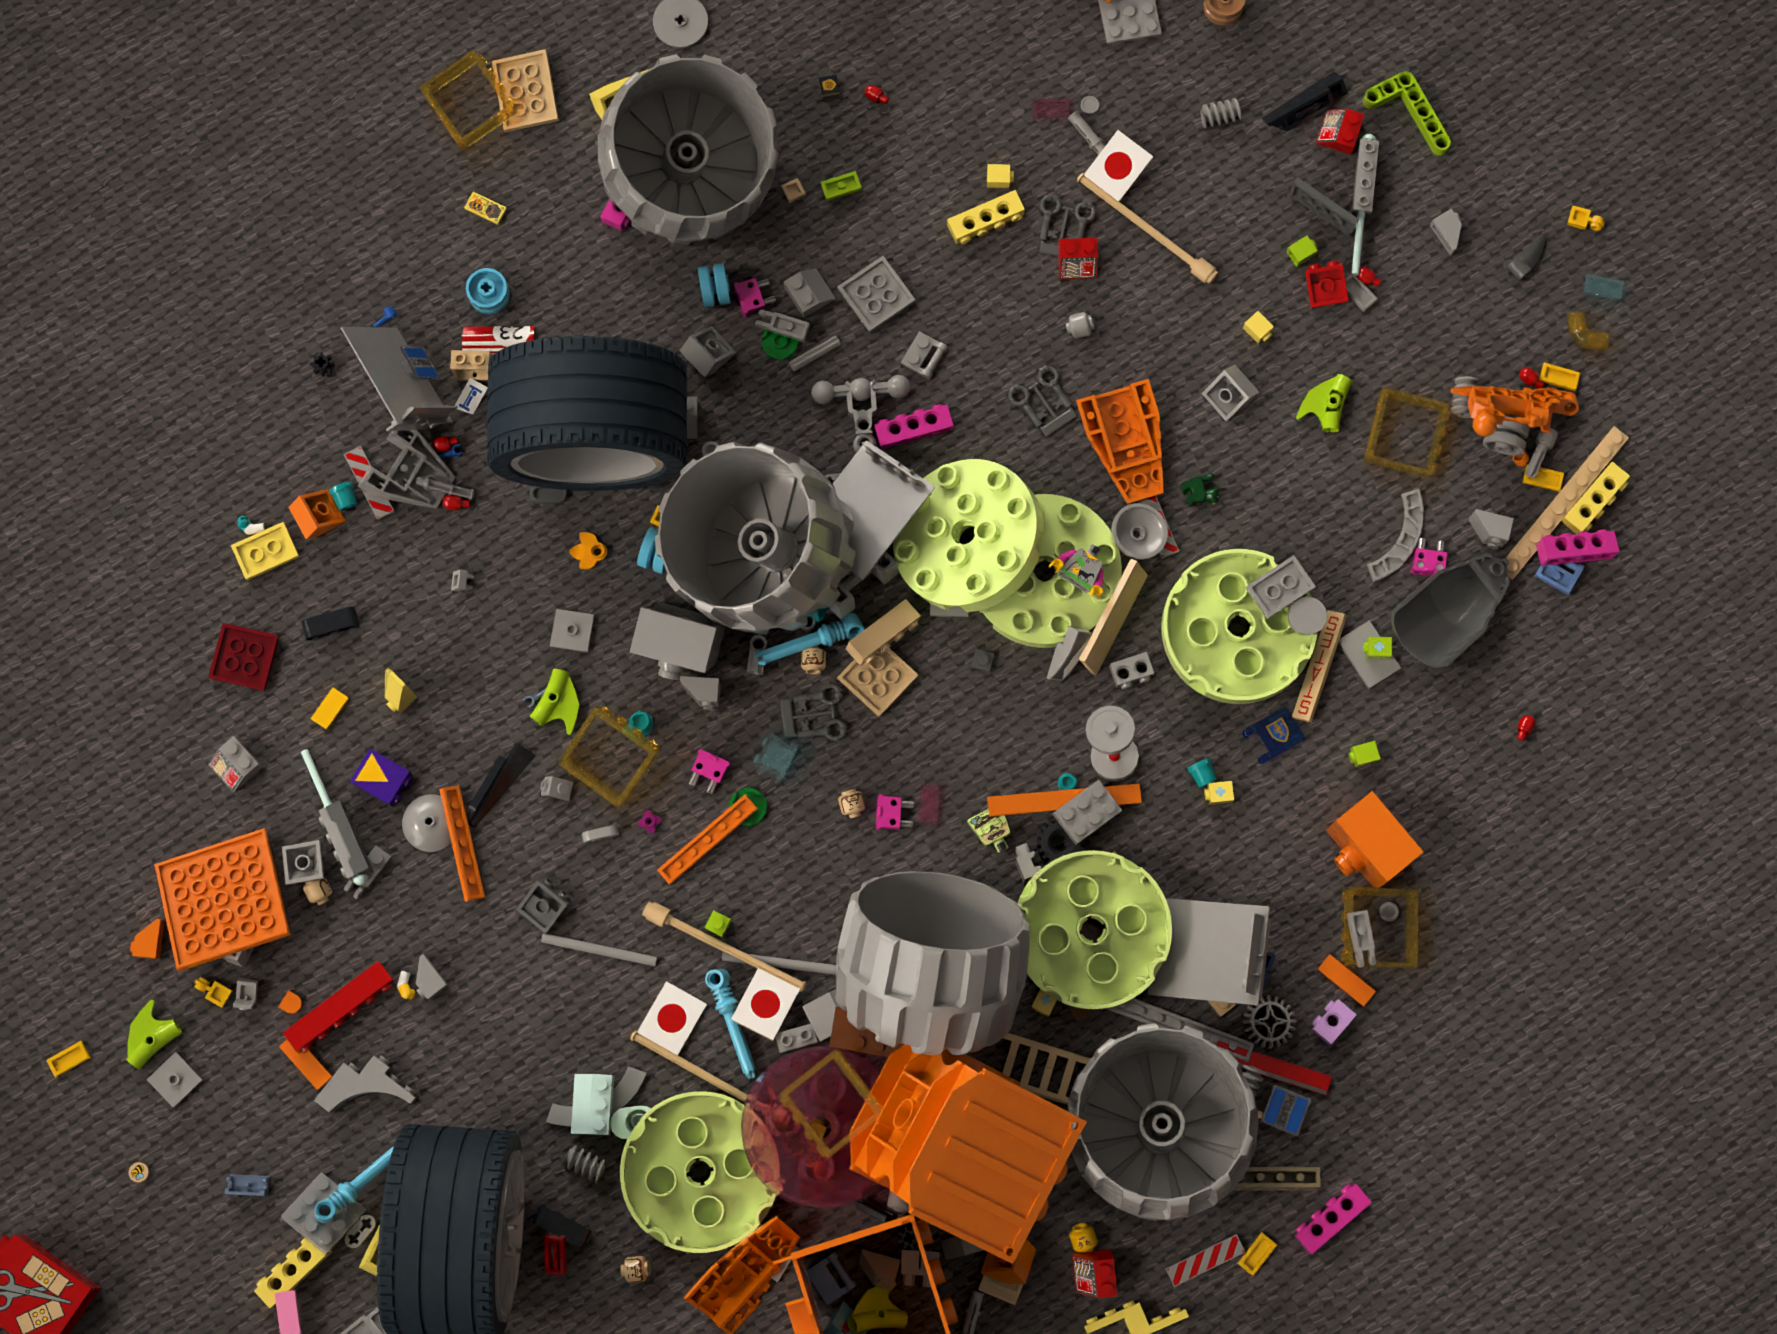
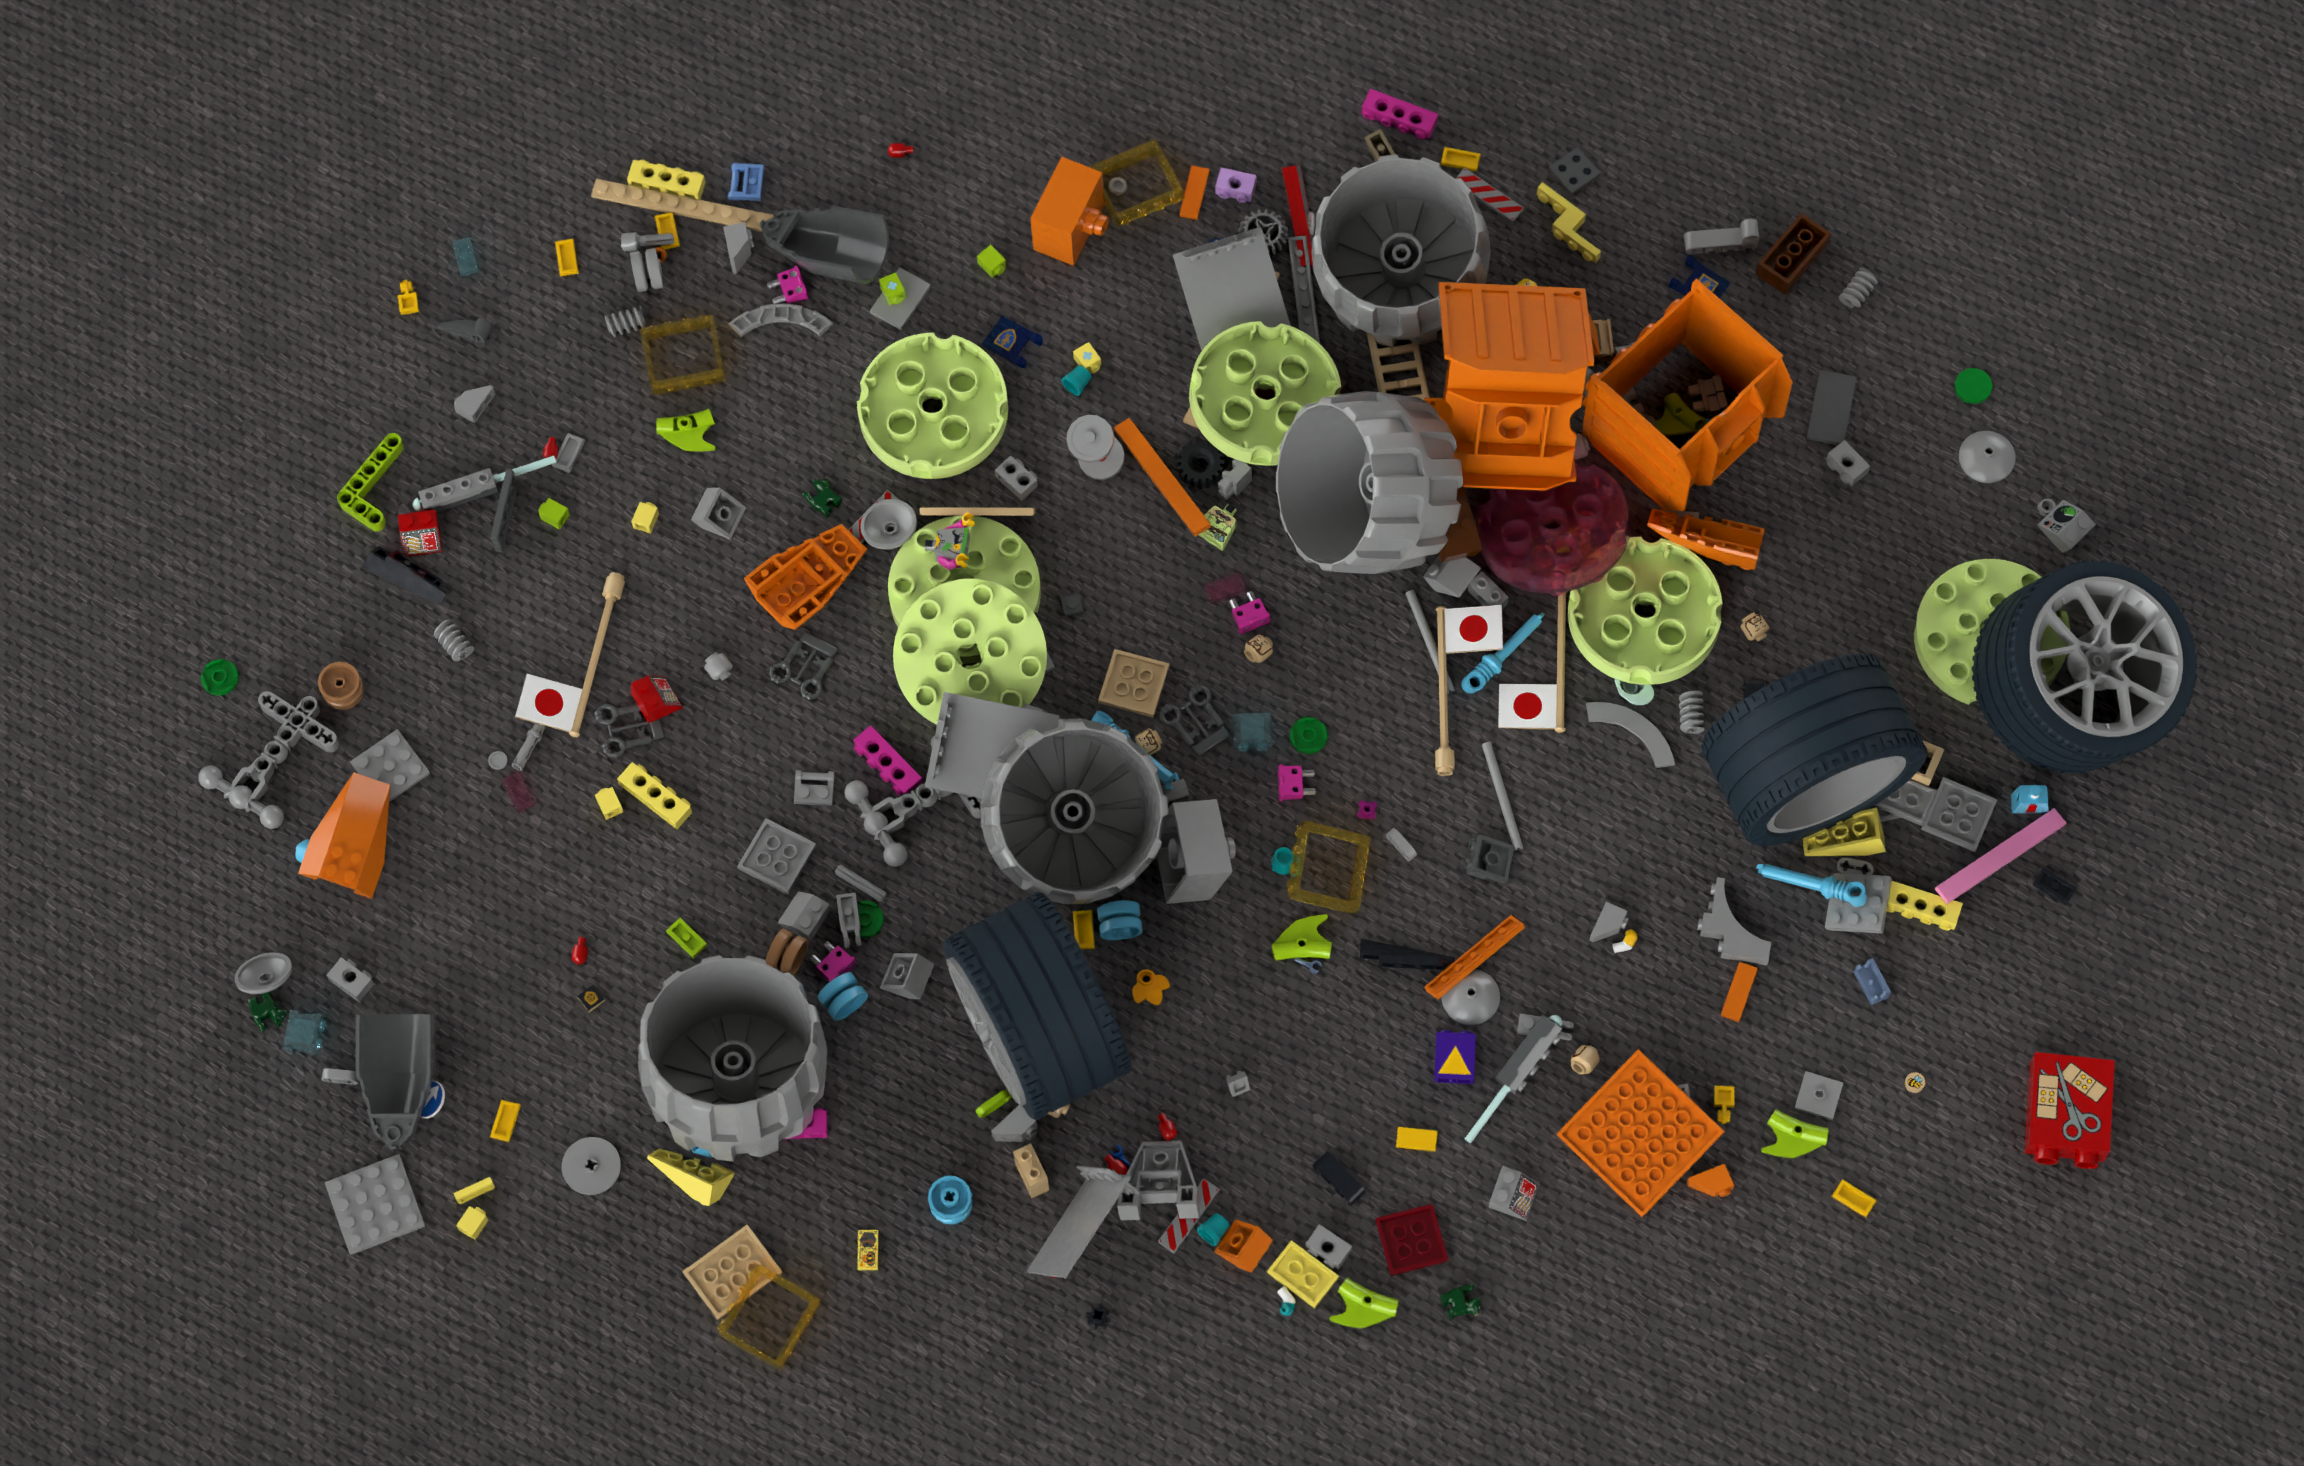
camera: 115 degrees left, 10 degrees down
(167, 667) = (1458, 1302): none -> dark green animal
(203, 581) = (1362, 1314): none -> lime pin
(246, 994) = (1711, 1071): light grey bracket -> none
(286, 583) = (1323, 1237): none -> light grey brick
(291, 1003) = (1696, 1031): orange tile -> none
(303, 862) = (1568, 1079): light grey slope -> none
(338, 1007) = (1677, 984): red brick -> none
(389, 312) = (1016, 1283): blue hand -> none
(397, 692) = (1371, 1078): light yellow wedge -> none
(418, 362) = (1054, 1223): piece -> none
(444, 487) = (1158, 1140): light grey piece -> none
(471, 396) = (1059, 1166): white sticker -> none
(495, 337) = (990, 1171): sticker -> none
(556, 788) = (1381, 904): light grey bracket -> none
(572, 630) = (1230, 964): light grey plate -> none
(592, 1104) = (1638, 728): light aqua slope -> none
(703, 690) = (1230, 813): light grey slope -> none
(707, 839) = (1356, 752): orange tile -> none
(718, 924) = (1425, 705): lime brick -> none
(778, 257) = (787, 952): none -> medium nougat wheel
(857, 1082) = (1518, 540): clear yellow window -> none
(876, 1210) = (1595, 453): black tile -> none
(883, 632) = (1093, 692): tan brick -> none
(1067, 782) = (1144, 485): teal plate -> none
(1068, 653) = (1028, 530): light grey slope -> none
(1087, 812) = (1163, 451): light grey plate -> none
(1095, 1273) = (1548, 266): red slope -> none
(1280, 587) = (883, 380): light grey plate -> none
(1285, 1110) = (1324, 184): piece -> none
(1307, 616) = (897, 349): light grey tile -> none
(1319, 666) = (942, 329): tan tile -> none
(1326, 284) = (575, 478): red plate -> none
(1361, 937) = (1154, 186): light grey hinge -> none
(1530, 377) = (579, 278): red cylinder -> none
(1536, 406) = (609, 268): orange piece -> none
(1551, 555) = (702, 156): dark pink brick -> none
(1583, 335) = (519, 251): clear yellow cylinder -> none

